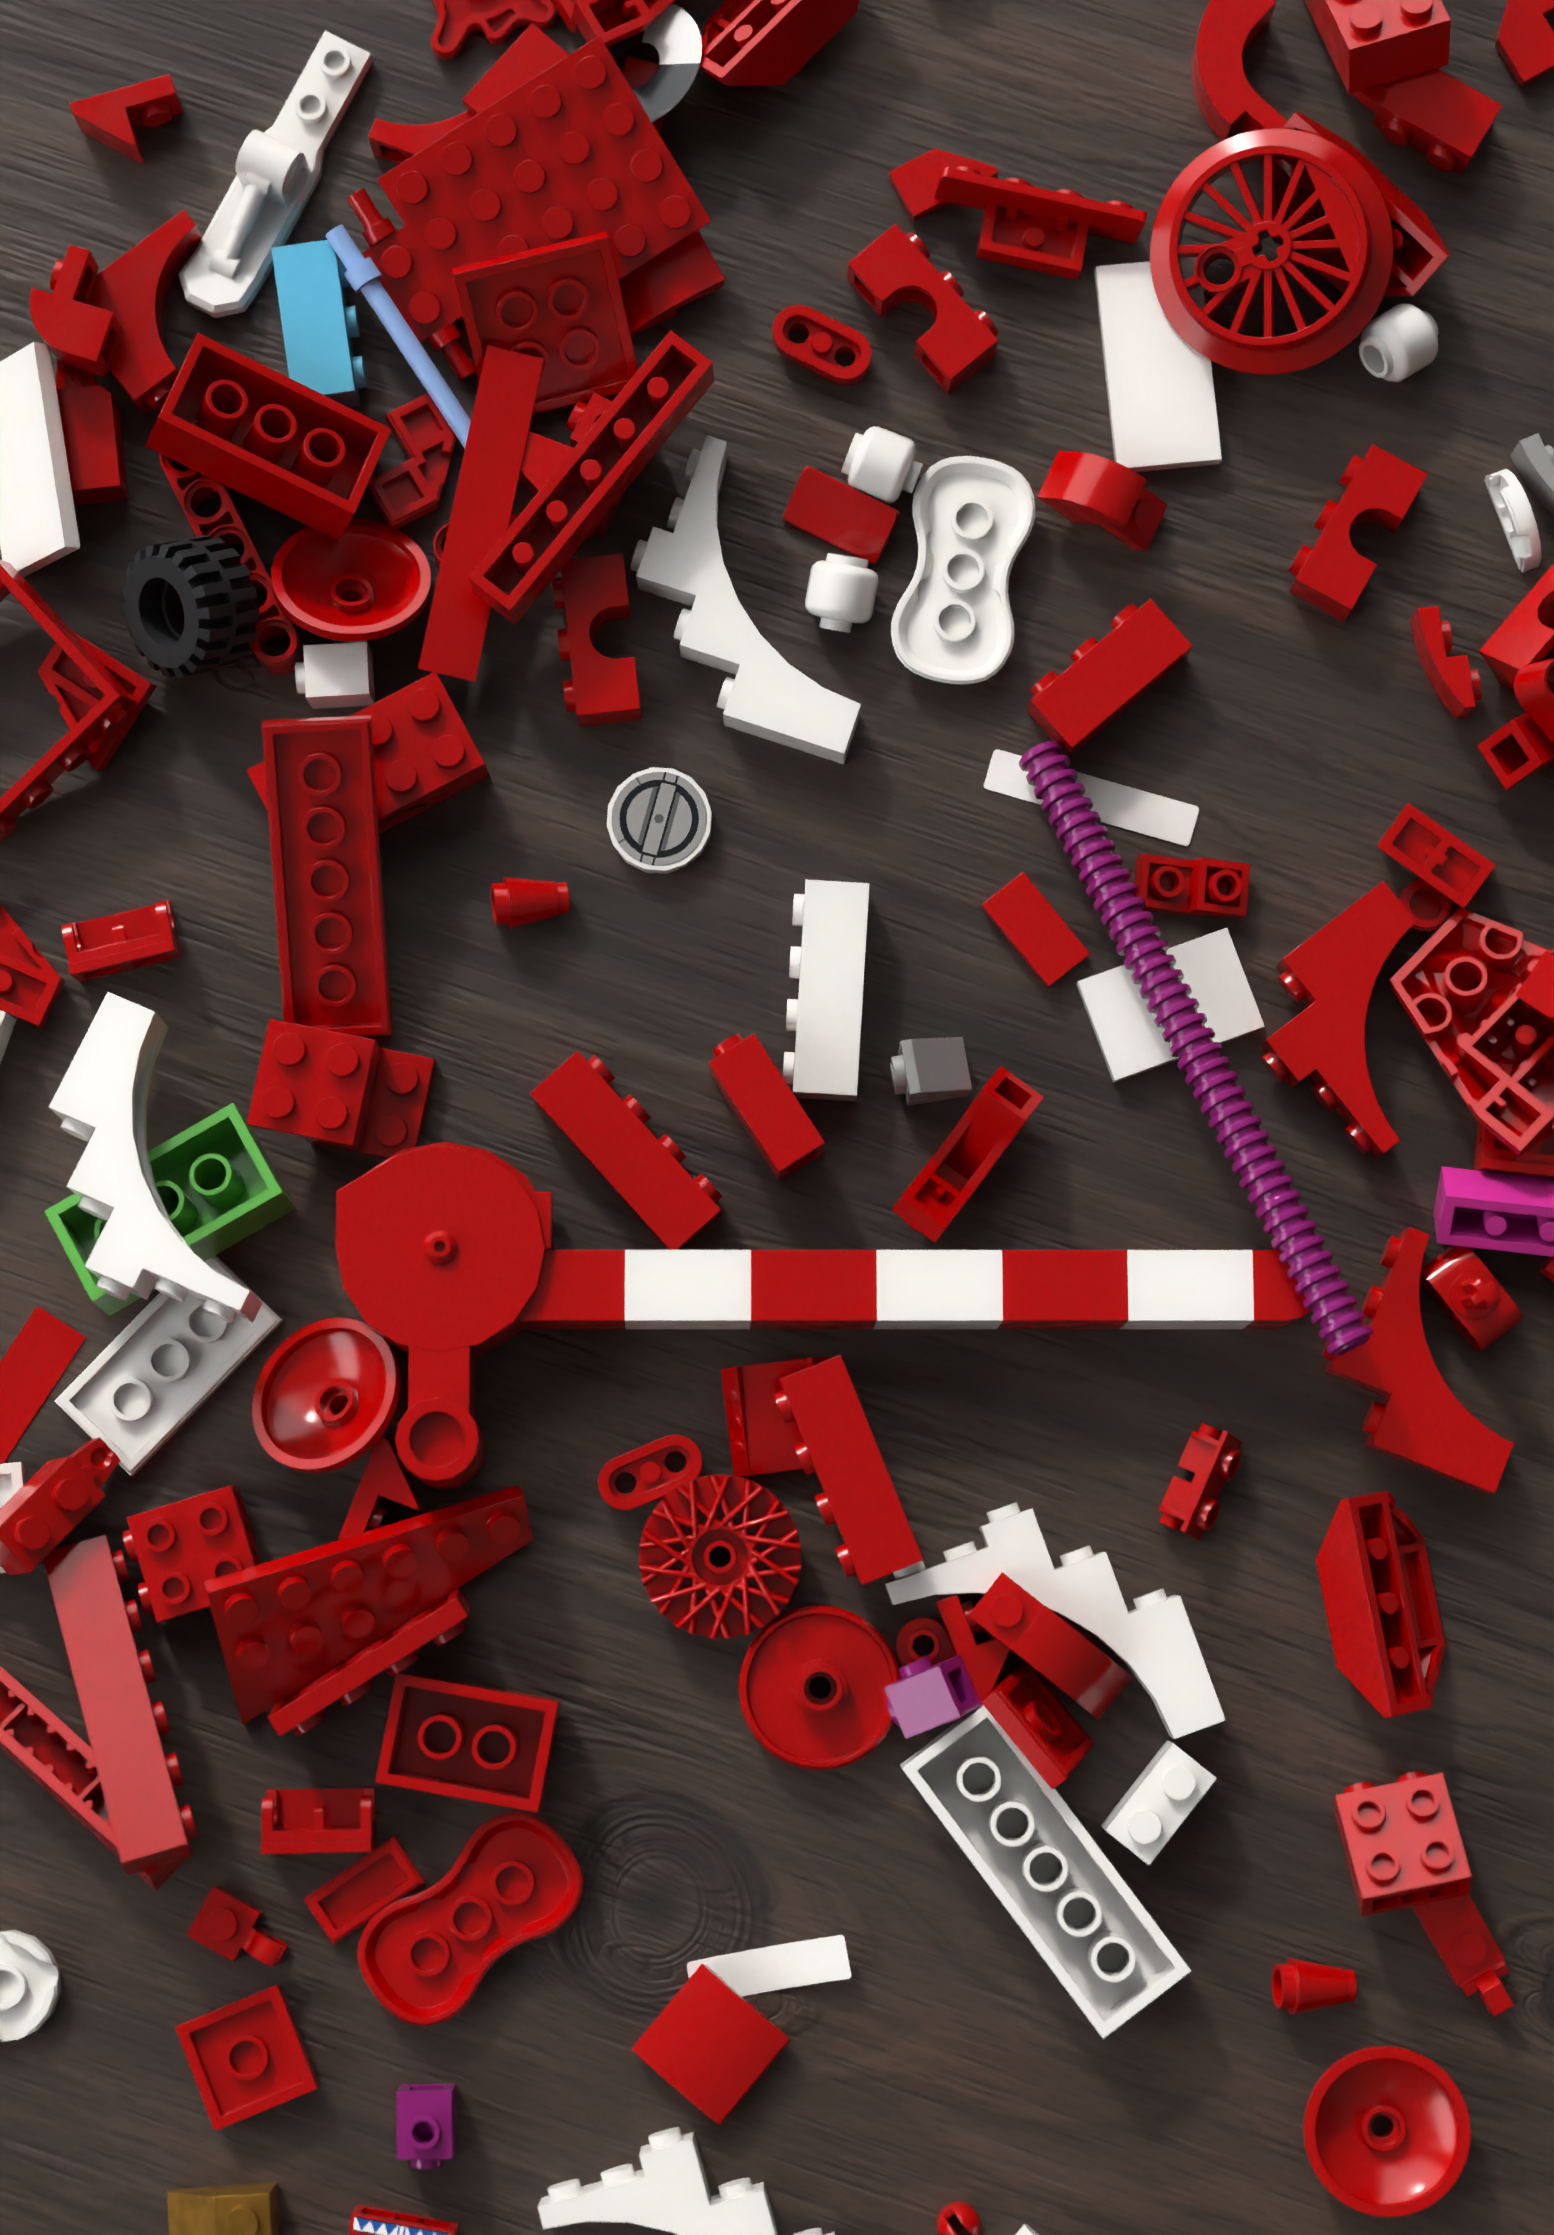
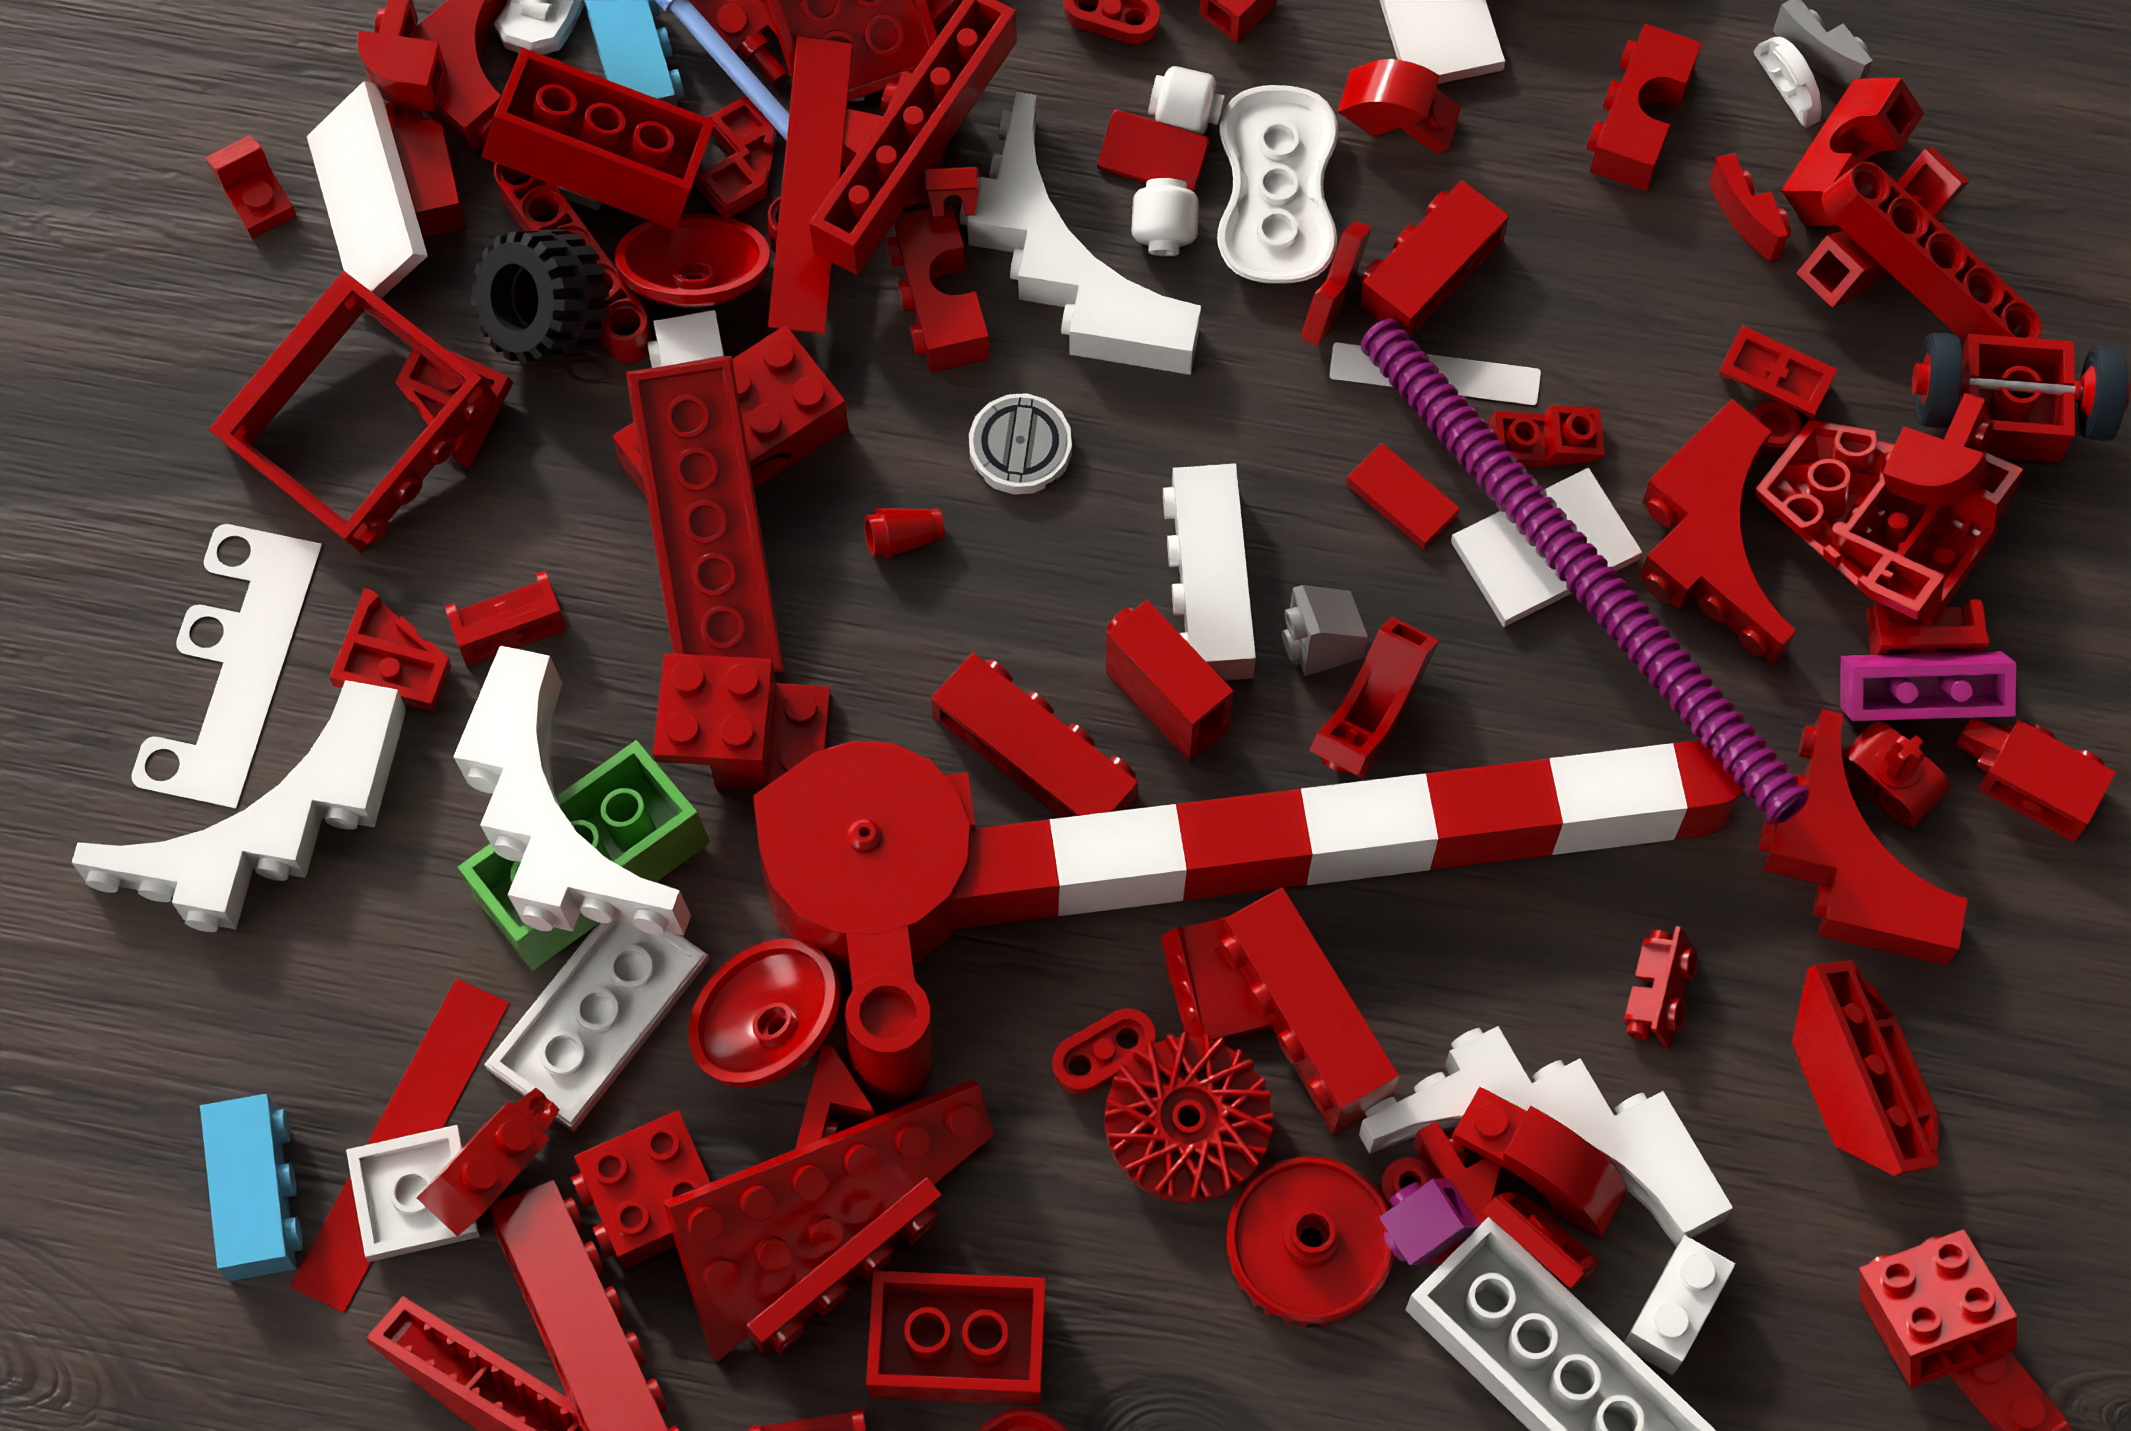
camera: 10 degrees left, 15 degrees down
(626, 537) = (953, 182): none -> red tile
(1003, 695) = (1331, 295): none -> red tile

